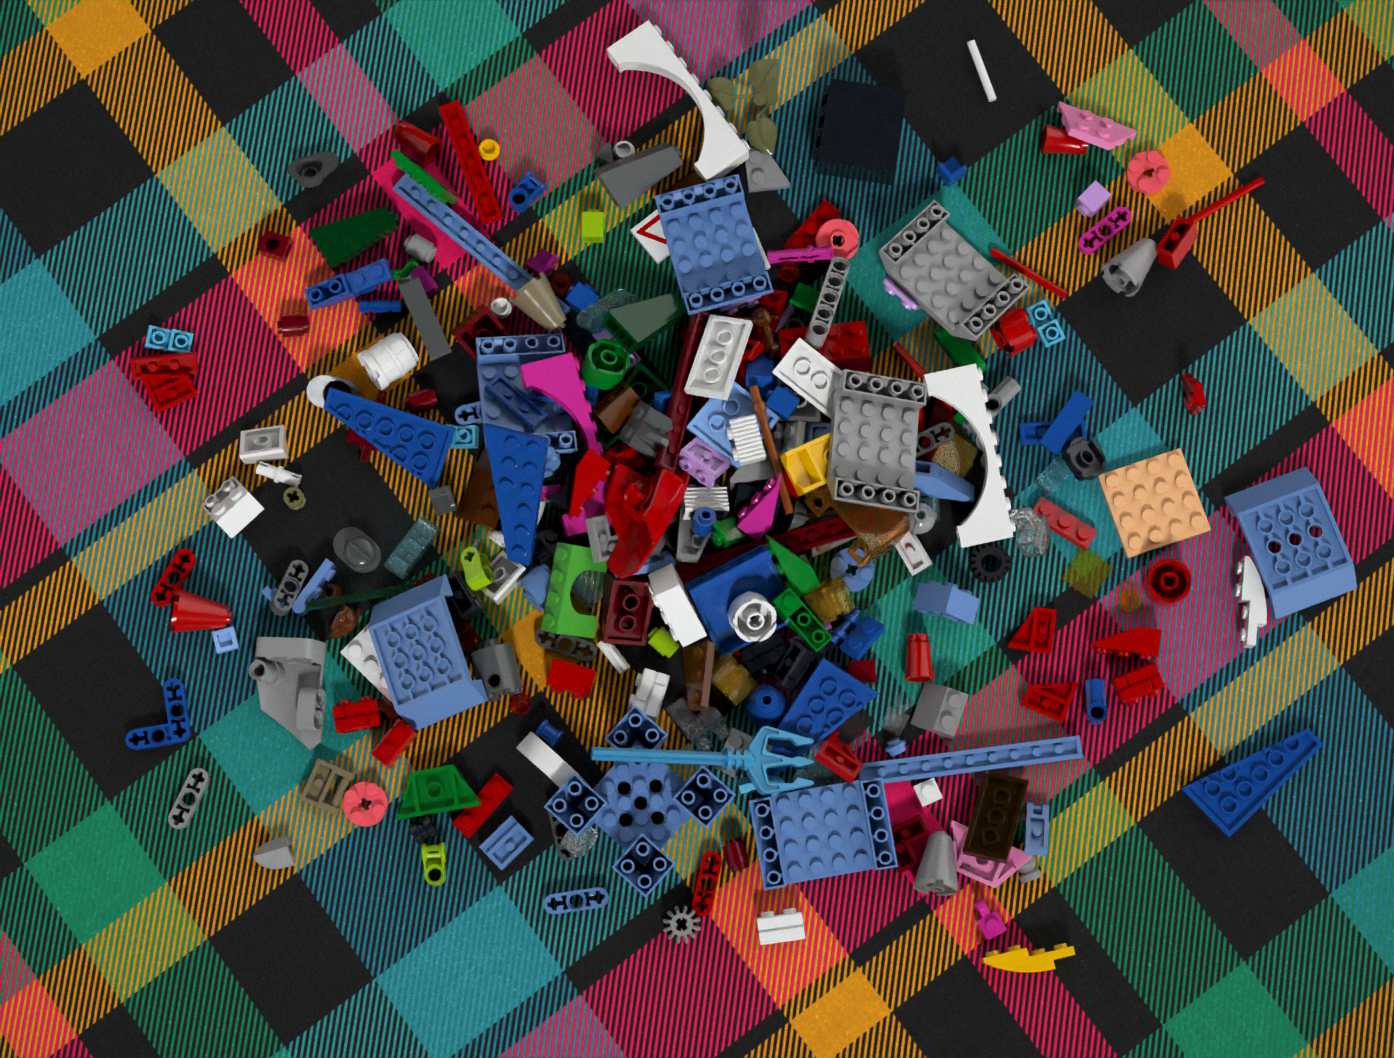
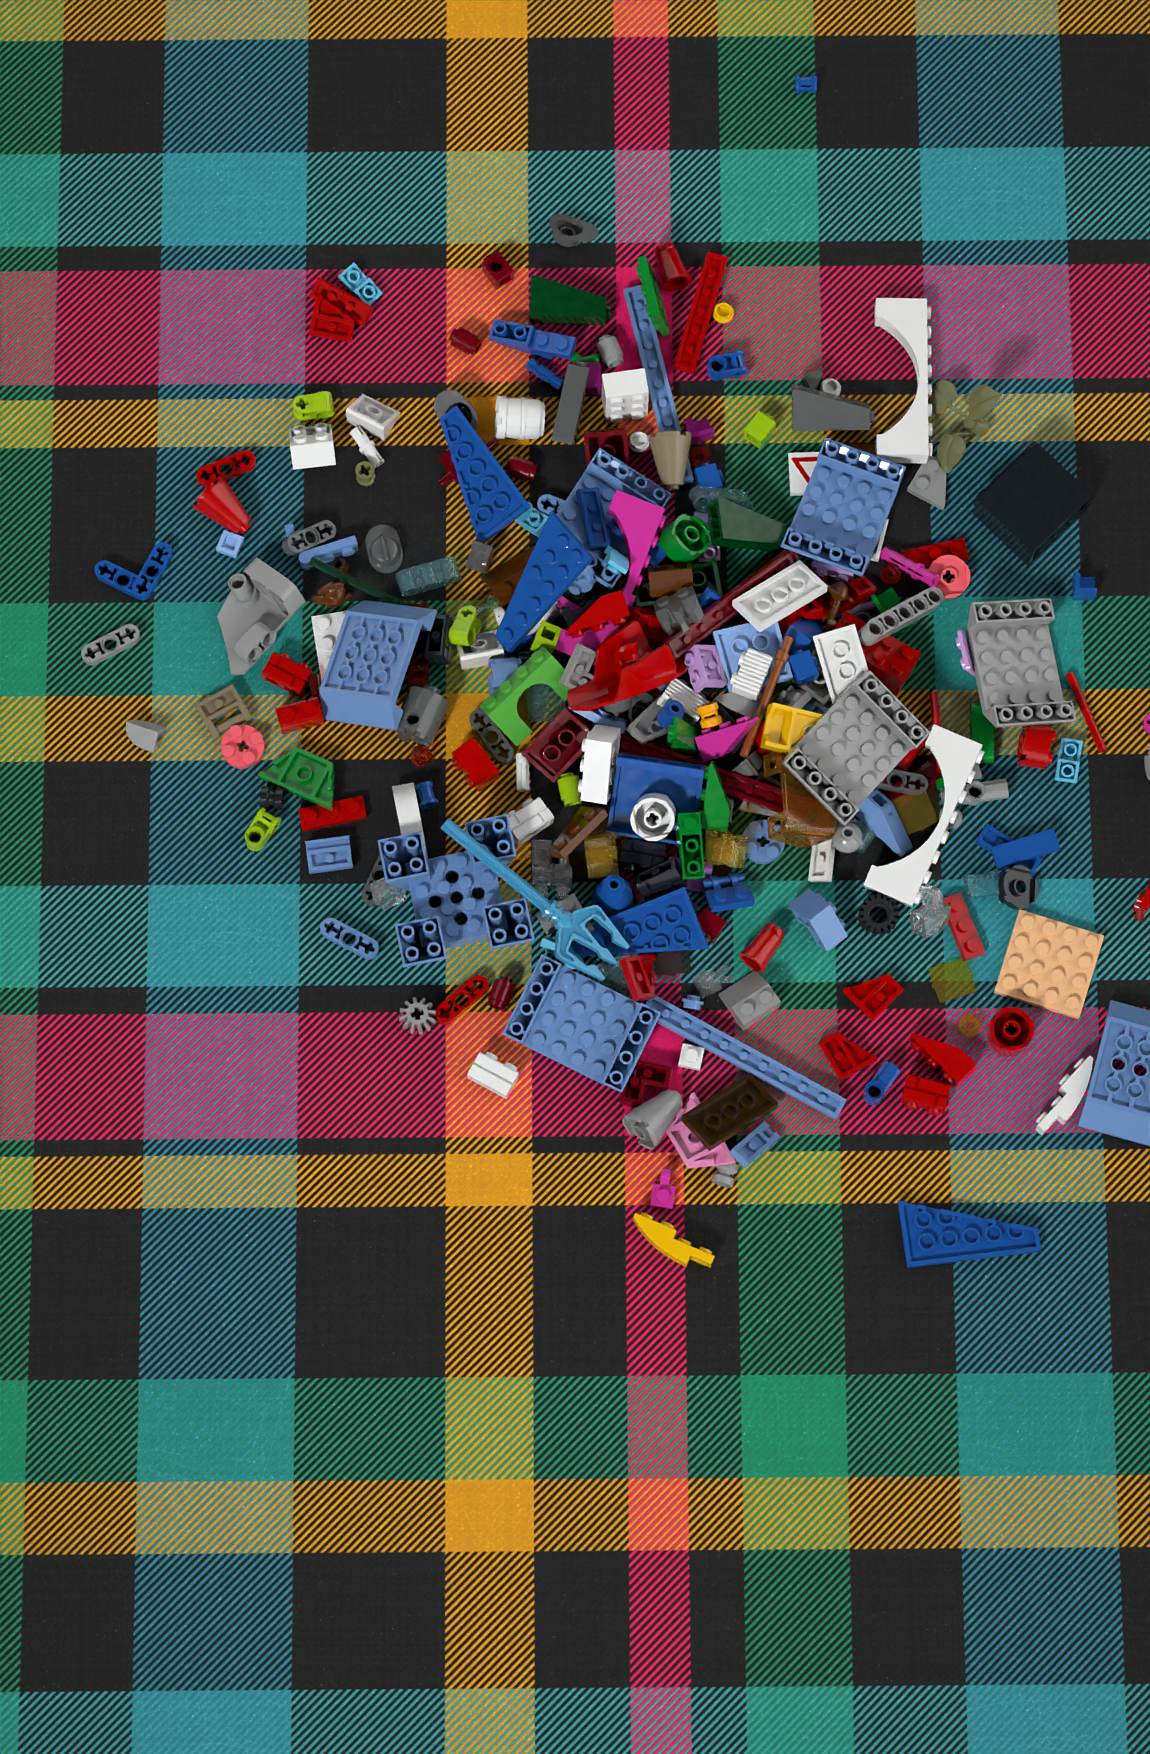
camera: 35 degrees right, 5 degrees down
(210, 470) = (315, 406): none -> lime piece
(463, 278) = (625, 395): none -> white brick
(553, 531) = (546, 636): none -> lime brick
(564, 425) = (616, 561): none -> medium azure slope
(736, 499) = (707, 710): none -> light orange wheel

